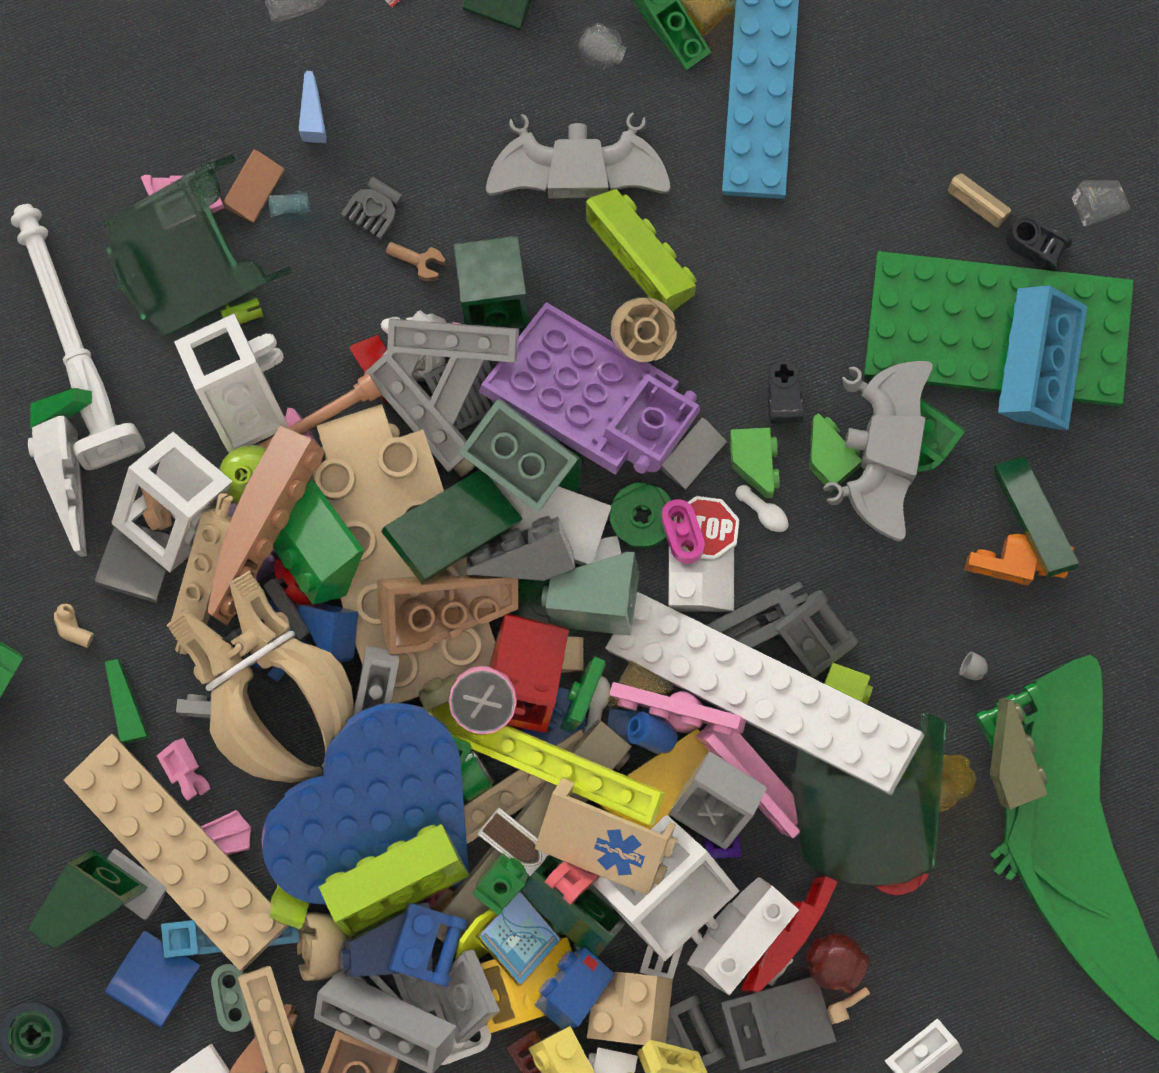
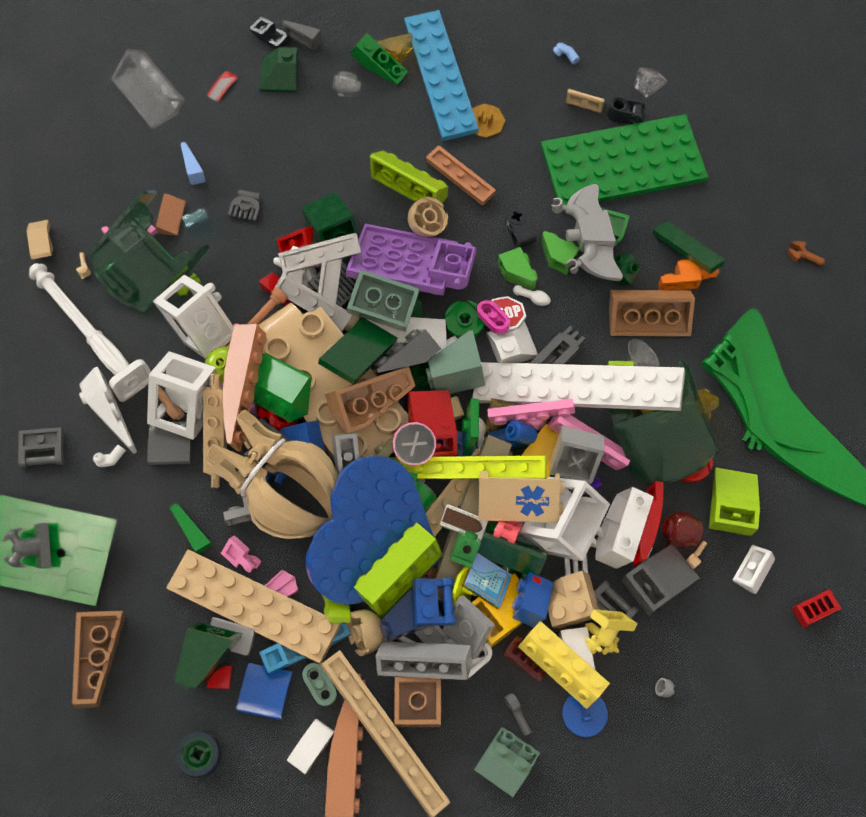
camera: 25 degrees left, 10 degrees down
(42, 163) = (39, 239): none -> tan slope
(42, 555) = (109, 459): none -> white arm
(60, 404) = (98, 359): green piece -> none
(68, 627) = (138, 495): tan arm -> none
(96, 237) = (83, 270): none -> tan hand
(99, 939) = (221, 679): none -> red tile
(418, 260) = (289, 220): medium nougat bar -> none
(430, 298) = (298, 239): none -> red slope
(577, 164) = (354, 147): light grey torso -> none
(693, 454) = (480, 278): light grey slope -> none
(726, 268) = (460, 175): none -> nougat plate
(808, 641) = (587, 353): dark grey plate -> none
(809, 182) = (489, 120): none -> pearl gold piece
(891, 671) = (642, 354): none -> clear dish
(922, 517) = (628, 266): none -> dark green brick
(934, 602) = (651, 312): none -> medium nougat slope
(936, 945) = (735, 502): none -> lime slope
(973, 666) = (687, 339): light grey hinge -> none
(986, 99) = (568, 51): none -> light blue arm
(1013, 764) = (734, 376): olive slope -> none
(1042, 357) = (656, 163): dark azure slope -> none

